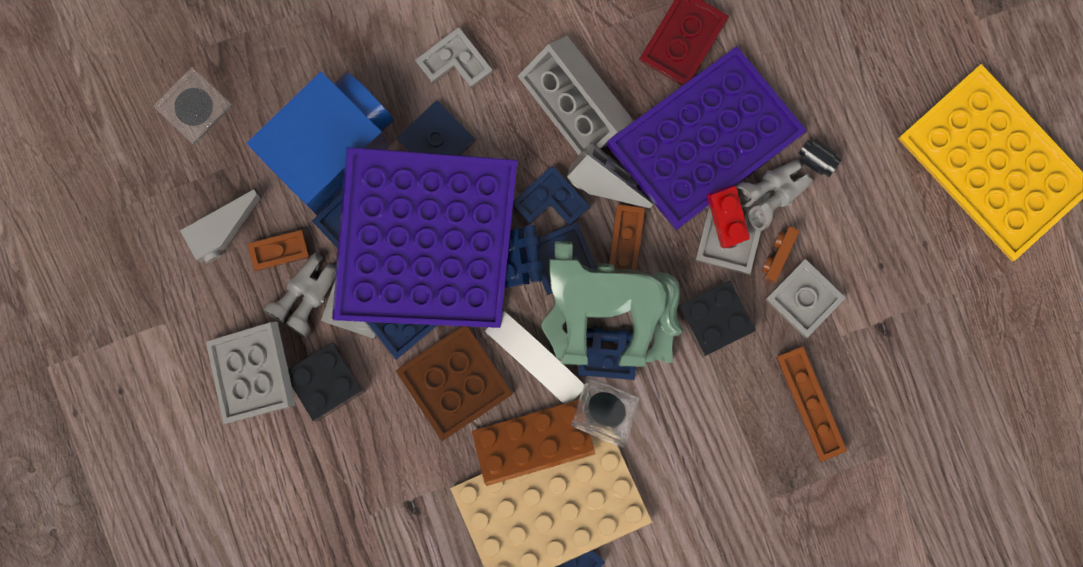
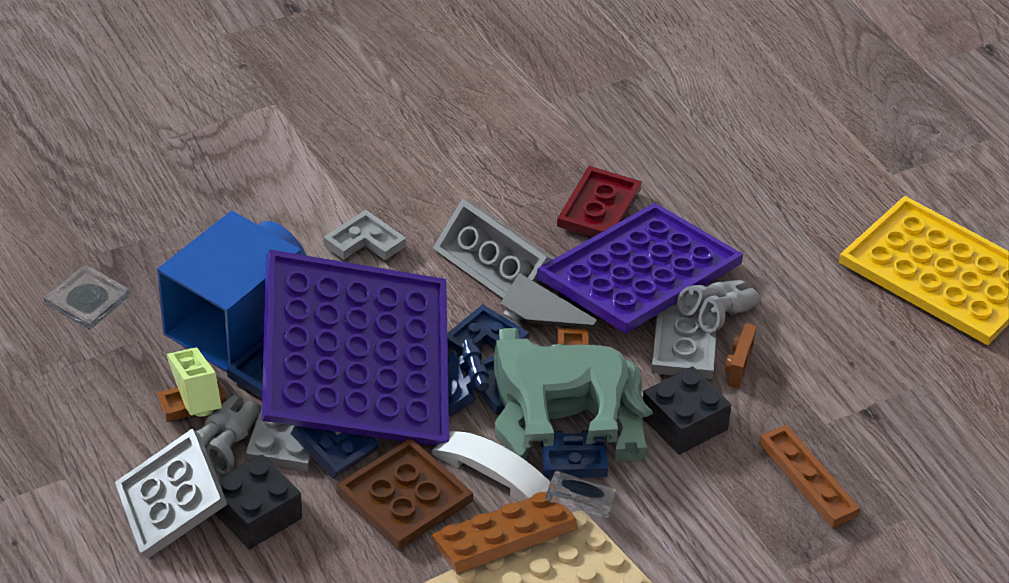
camera: 10 degrees left, 40 degrees down
(216, 231) = (124, 383): light grey slope -> none
(279, 242) = (195, 381): none -> yellowish green slope
(728, 216) = (678, 316): red plate -> none
(805, 298) = (778, 389): light grey plate -> none
(819, 157) = (762, 277): black brick -> none

